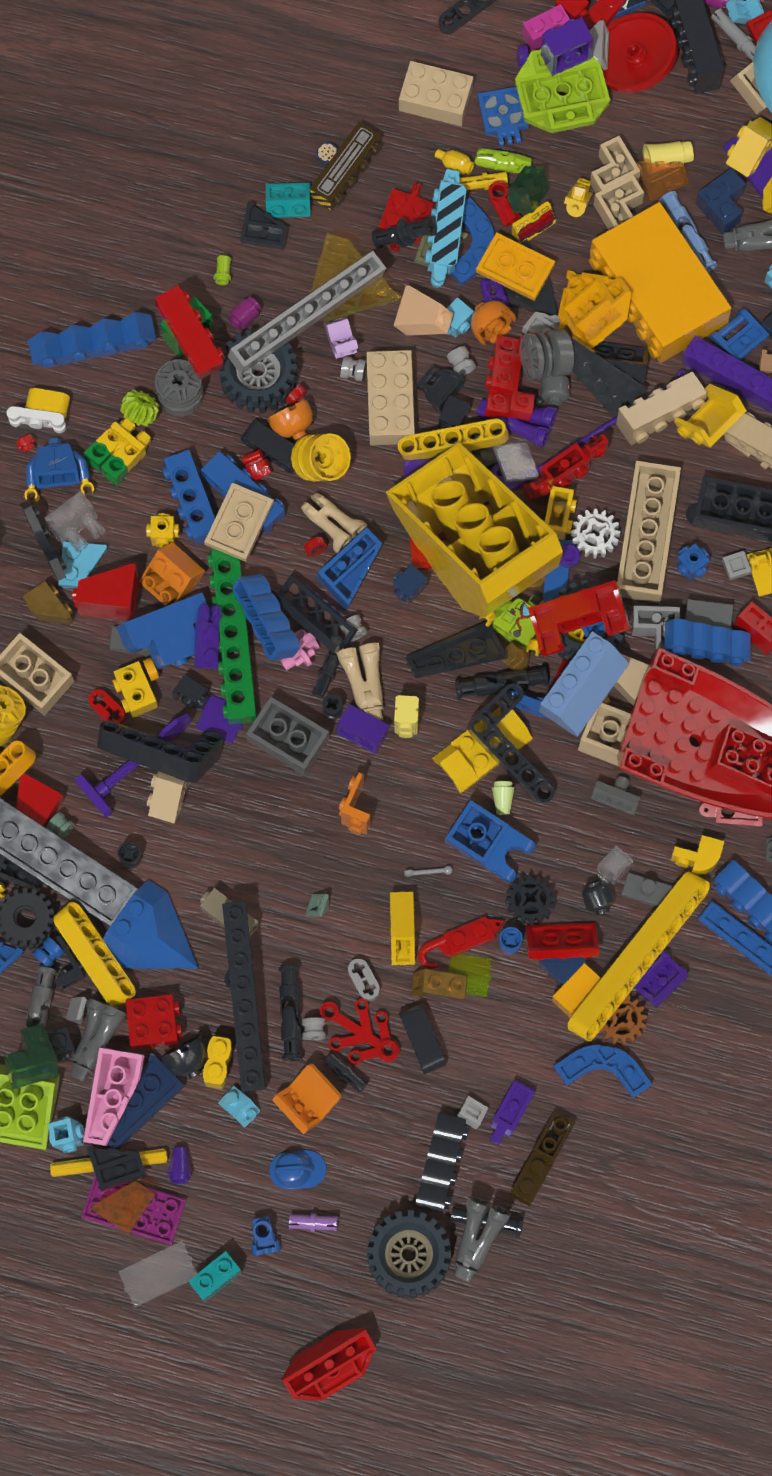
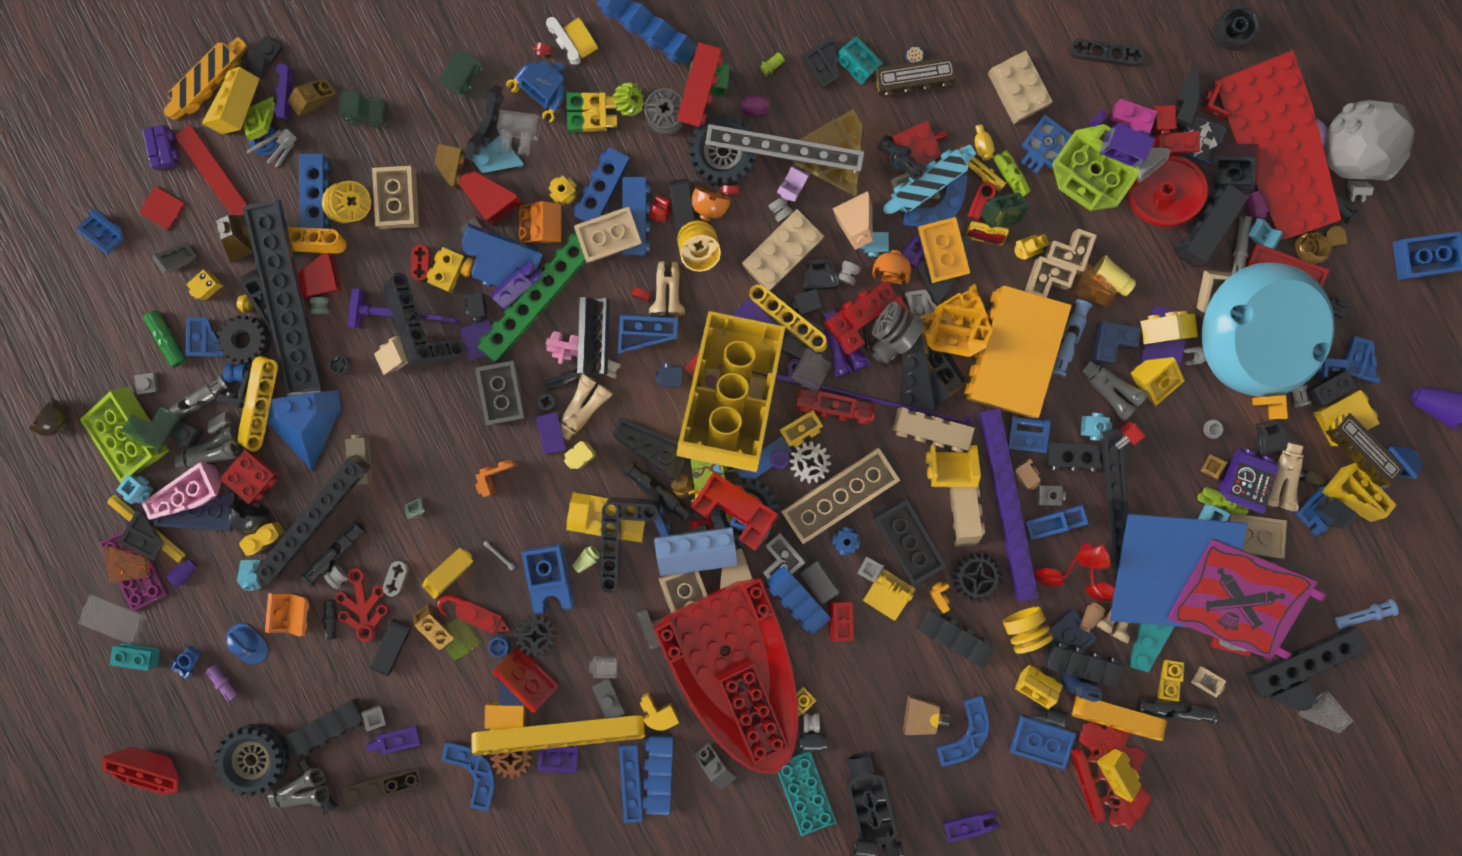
camera: 50 degrees right, 15 degrees up
(267, 619) = (560, 310): blue brick -> none
(598, 897) = (575, 674): black head -> none

